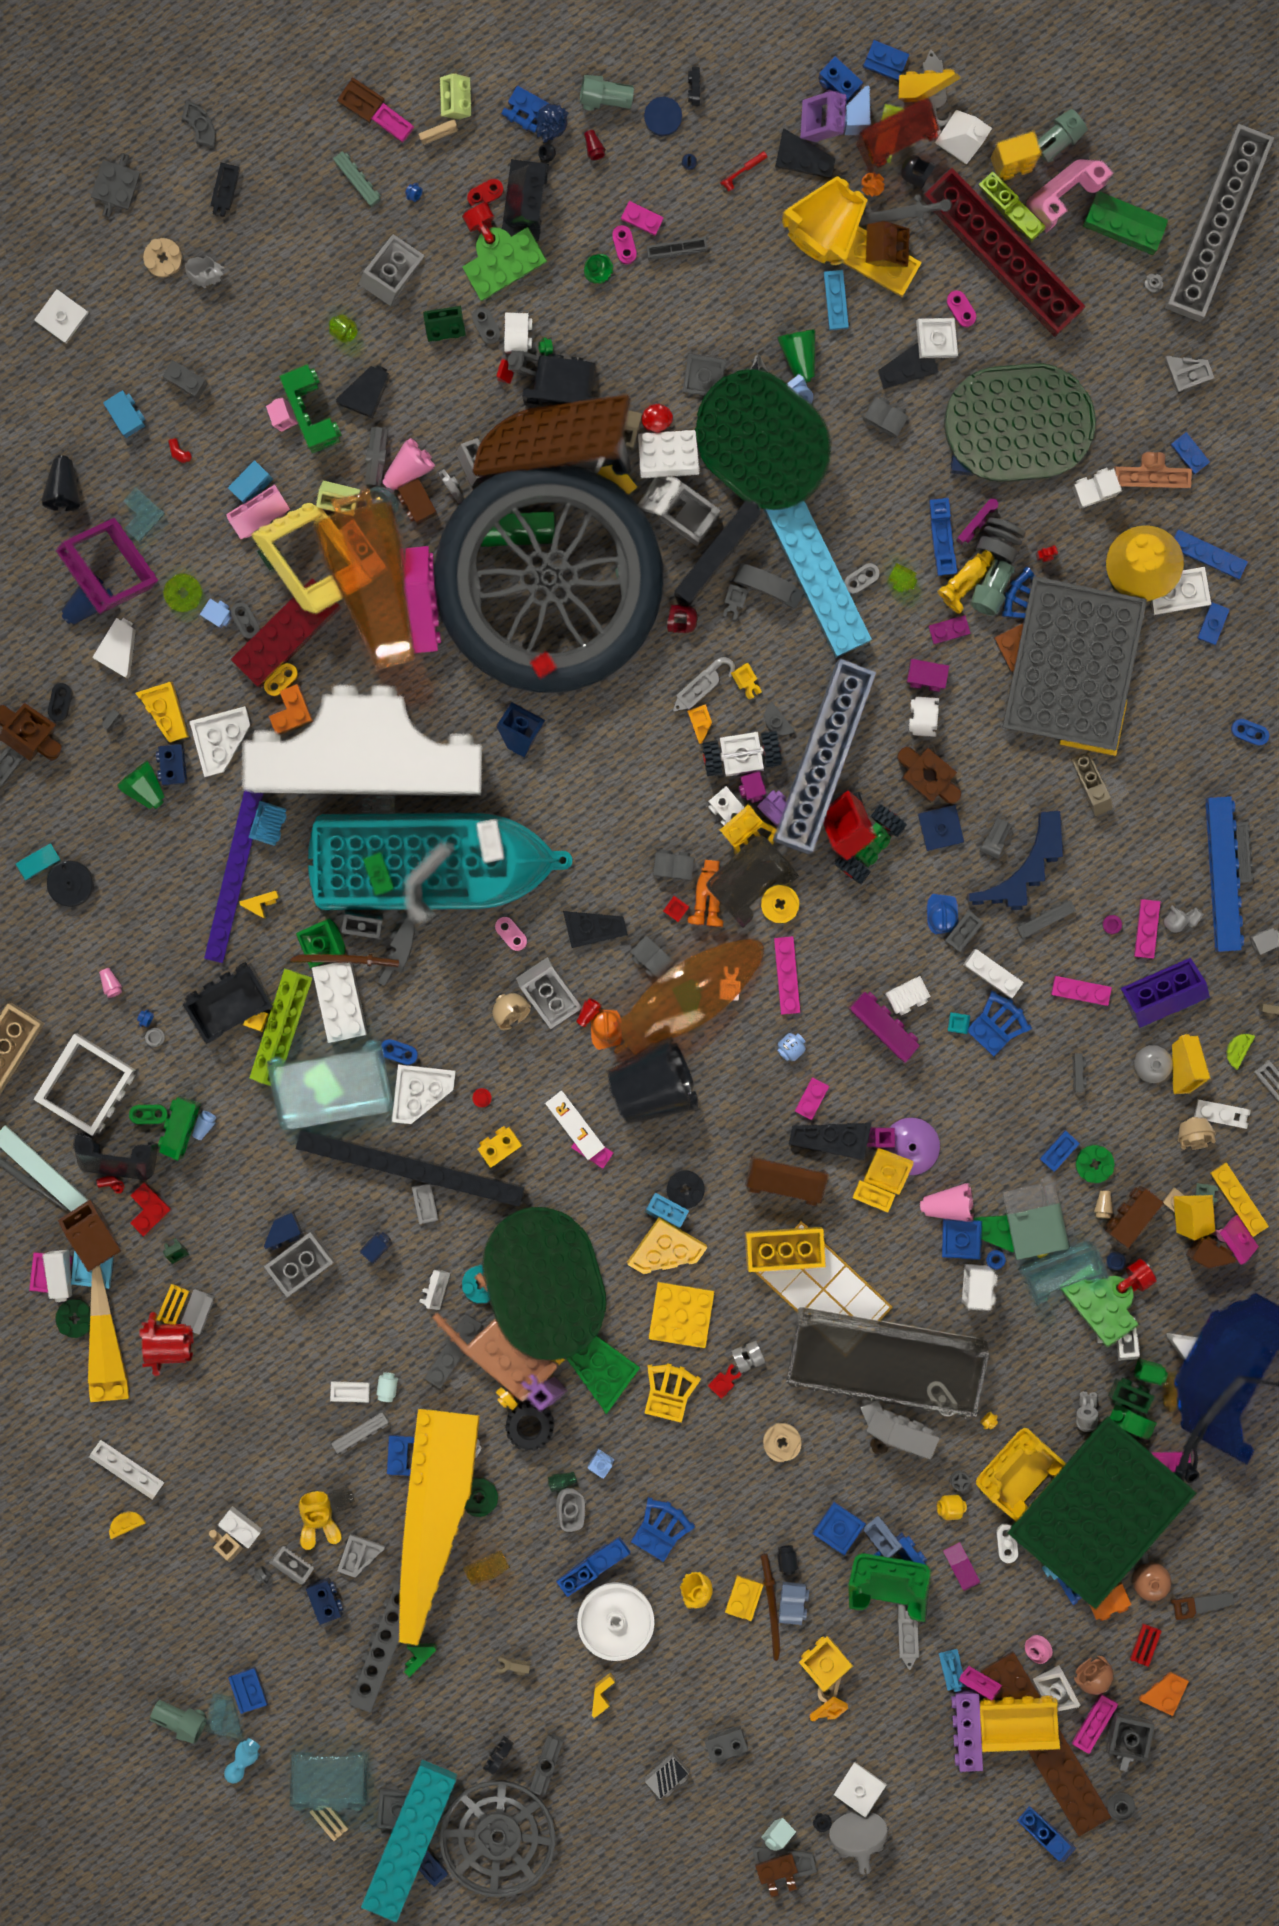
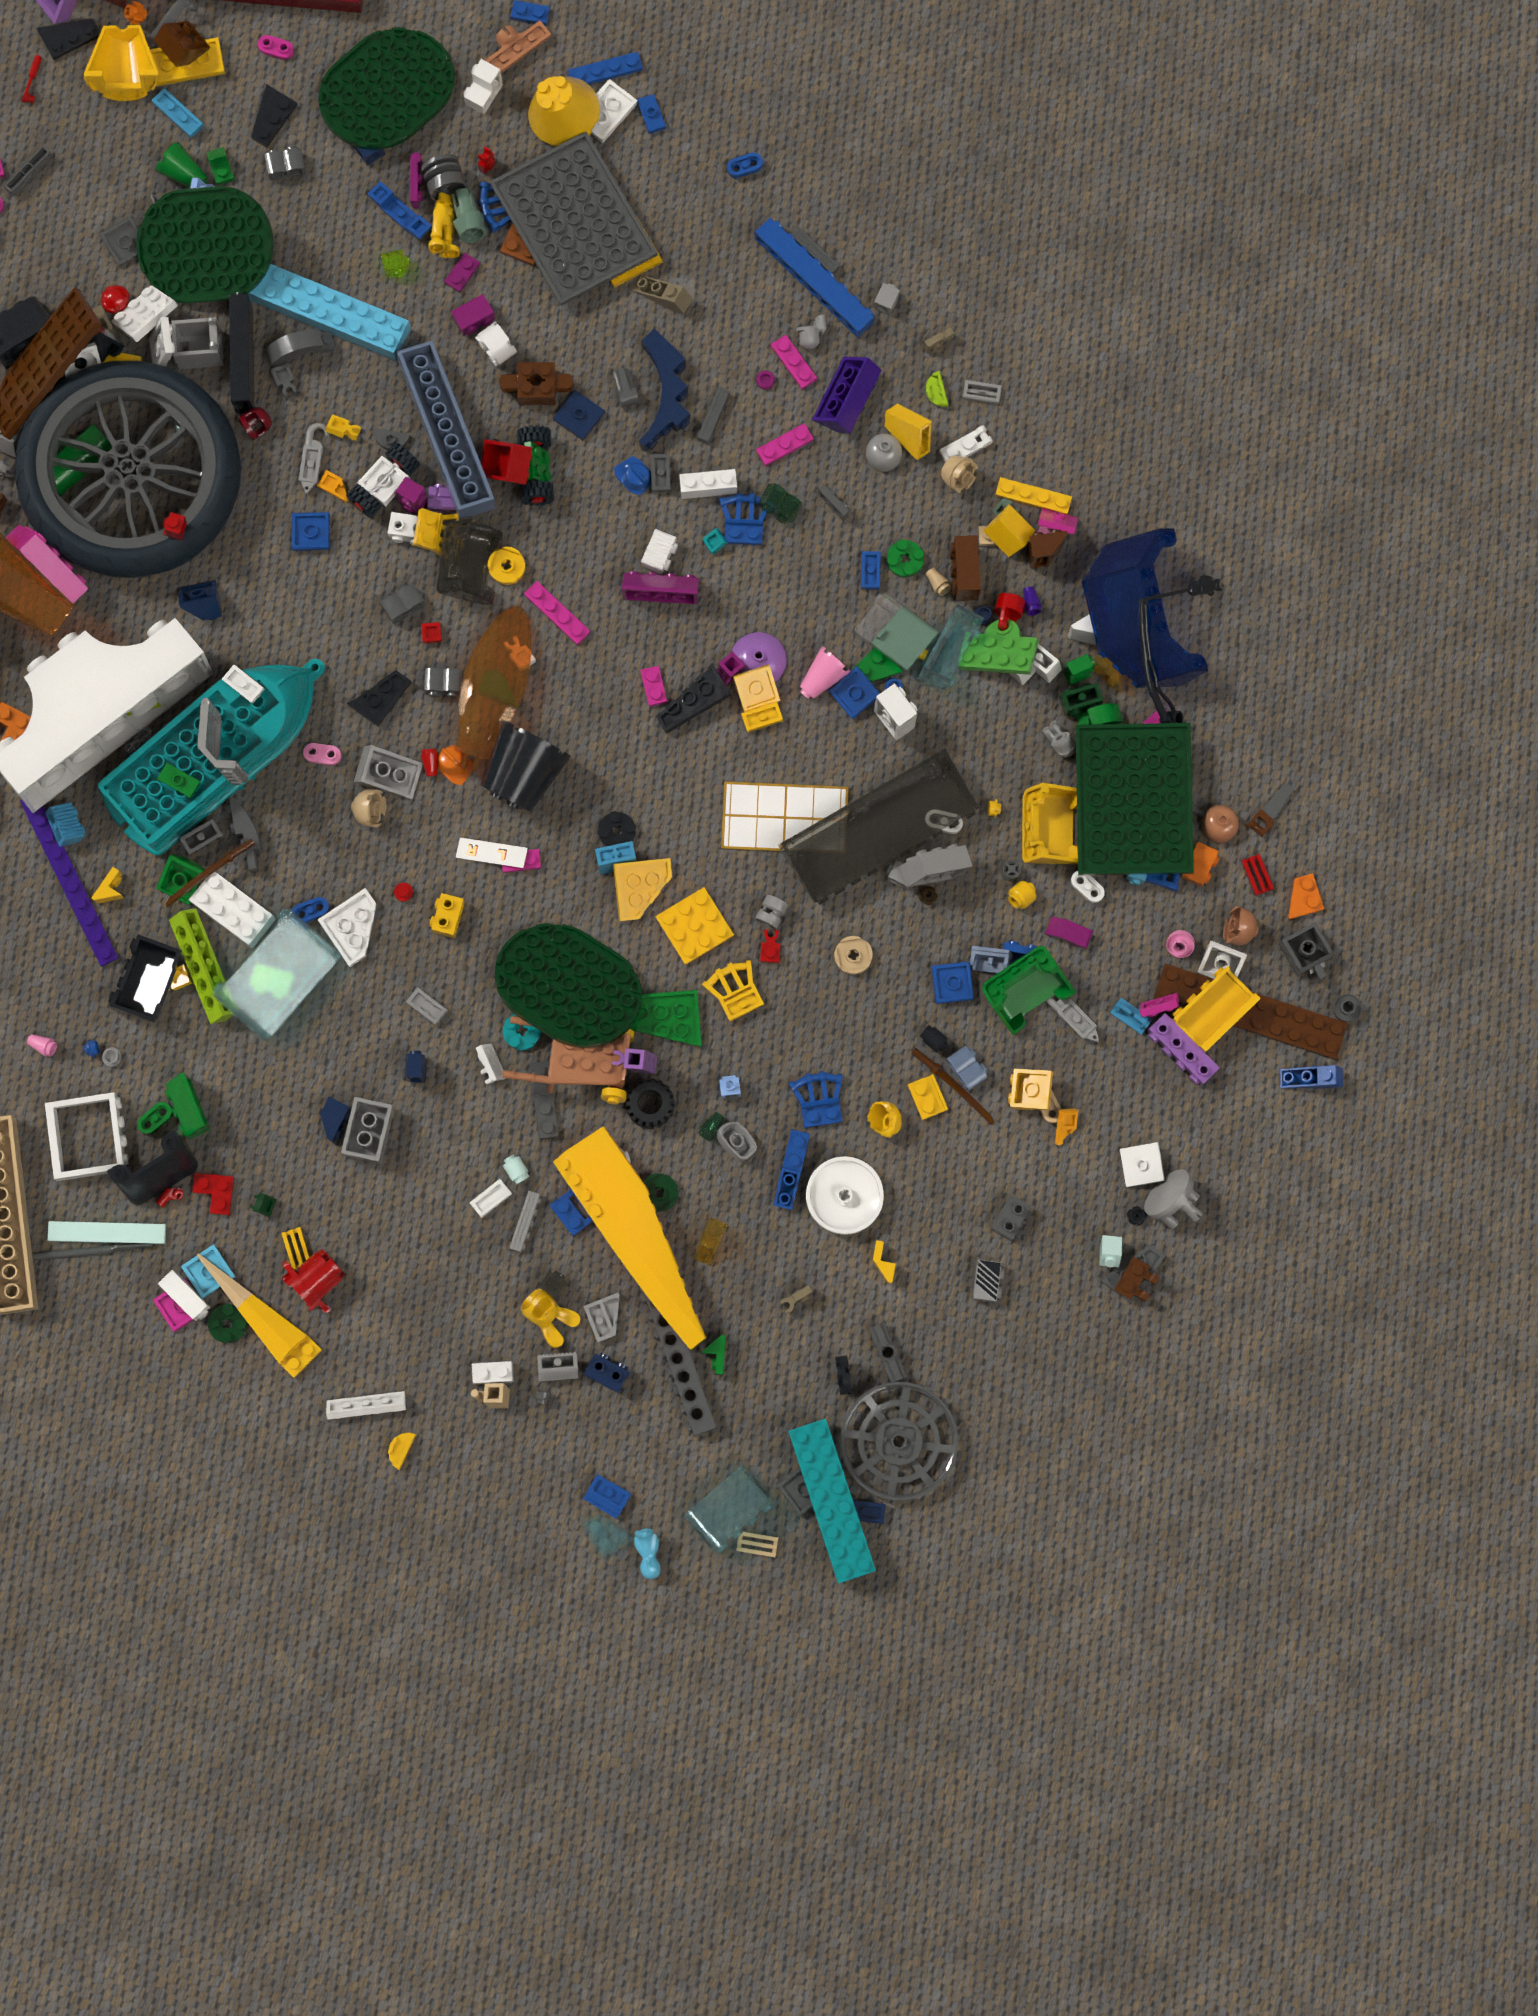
camera: 40 degrees left, 10 degrees down
(89, 1235) = (184, 1244): reddish brown slope -> none
(186, 1724) = (581, 1562): sand green piece -> none
(198, 1310) = (319, 1234): light grey panel -> none
(203, 1124) = (204, 1090): light blue cone -> none
(410, 1167) = (391, 988): black brick -> none
(651, 745) = (310, 531): none -> blue plate
(702, 892) = (440, 603): orange piece -> none
(785, 1249) = (729, 808): yellow brick -> none
(786, 1180) = (683, 751): reddish brown windscreen -> none
(791, 1047) = (605, 659): light blue head -> none
(833, 373) = (220, 166): none -> green slope
(861, 579) = (365, 289): light grey plate -> none
(937, 338) = (275, 80): white tile -> none
(1035, 1039) = (780, 503): none -> clear green brick
(1094, 1723) = (1272, 964): dark pink plate -> none
(1163, 1283) = (1032, 602): none -> dark purple cone

